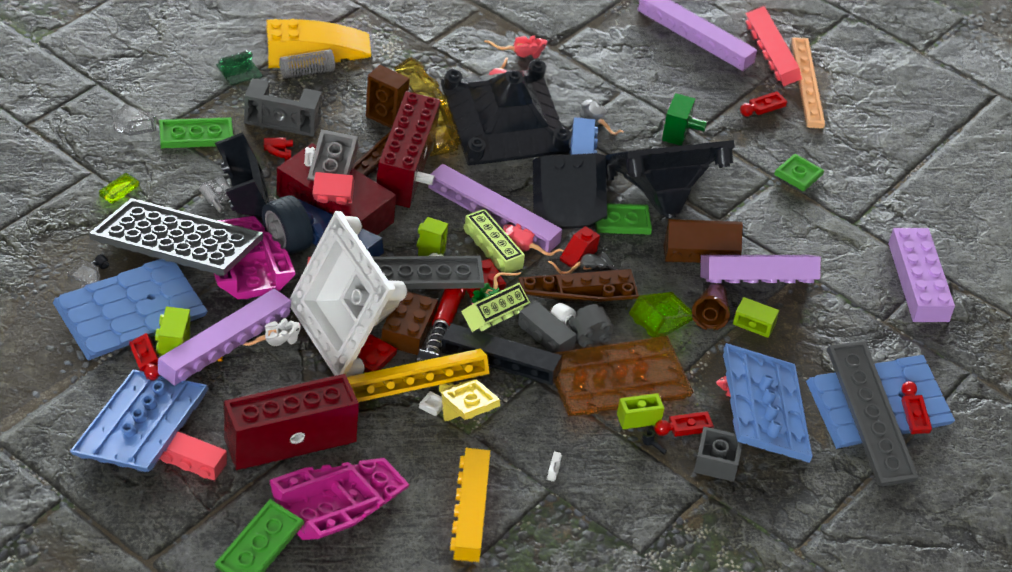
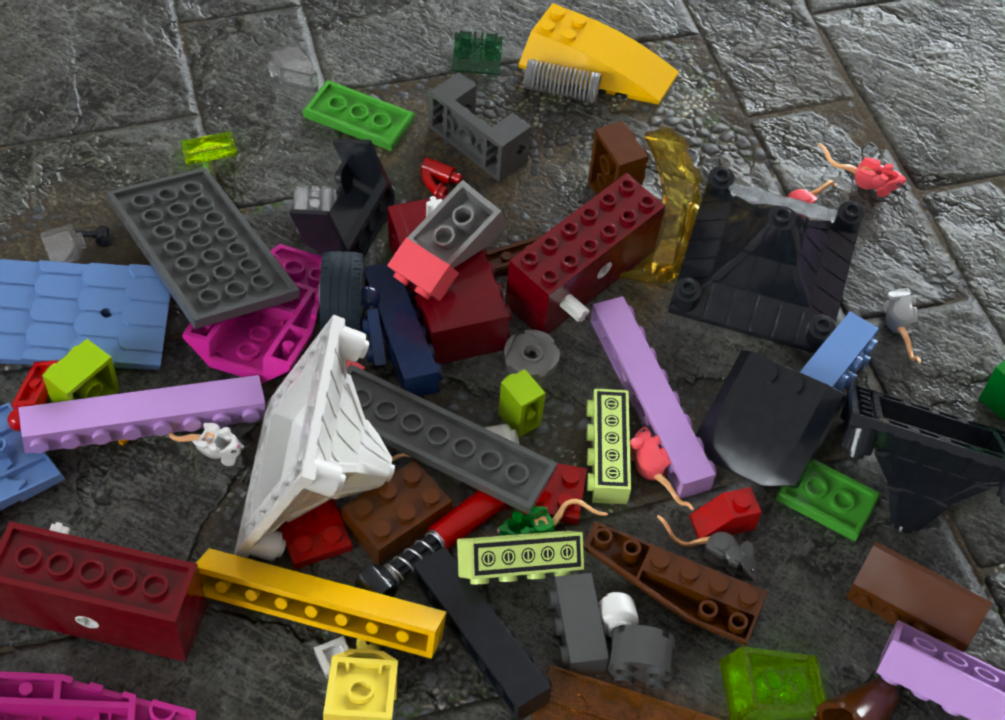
camera: 35 degrees right, 10 degrees up
(408, 209) = (532, 341): none -> light grey plate

